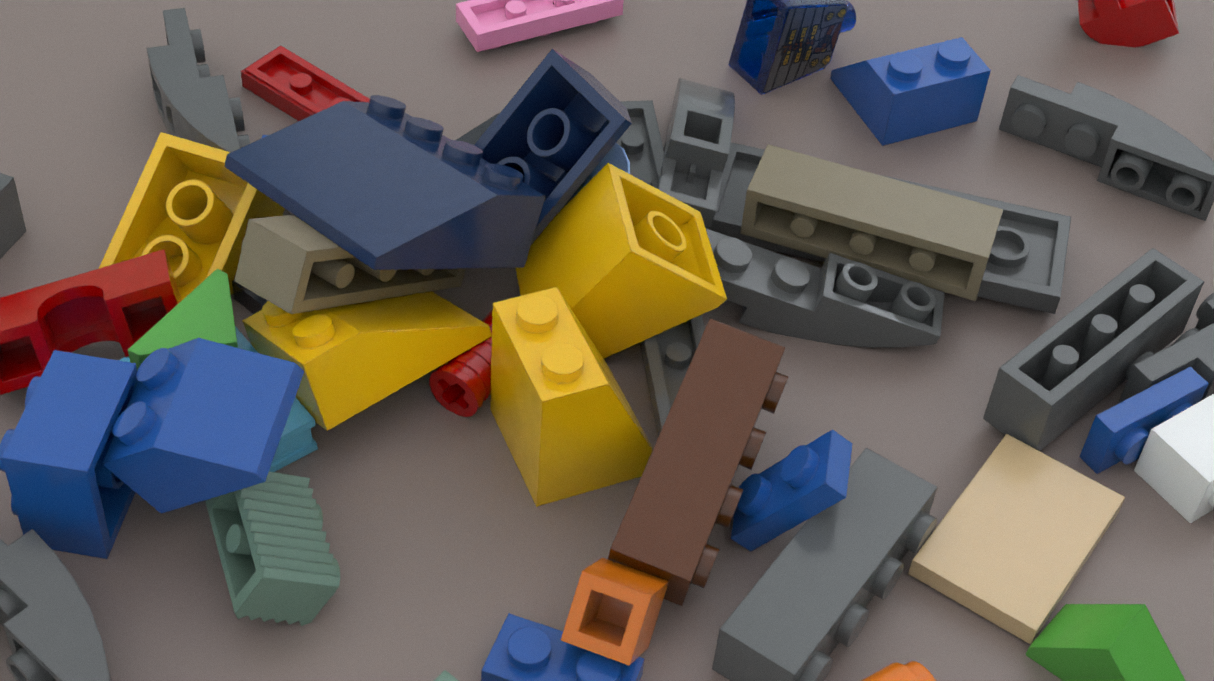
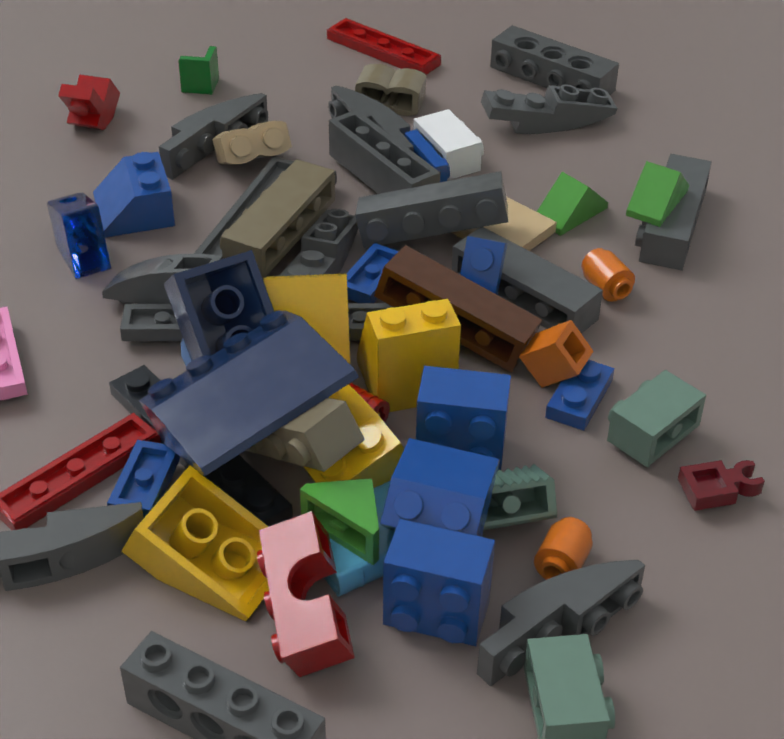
camera: 80 degrees left, 5 degrees down
(173, 633) = (563, 548): none -> orange brick
(414, 472) = (463, 410): none -> blue brick
(818, 371) = (366, 272): none -> blue plate
(961, 418) = (432, 209): none -> dark grey brick
(1090, 184) = (259, 140): none -> tan brick

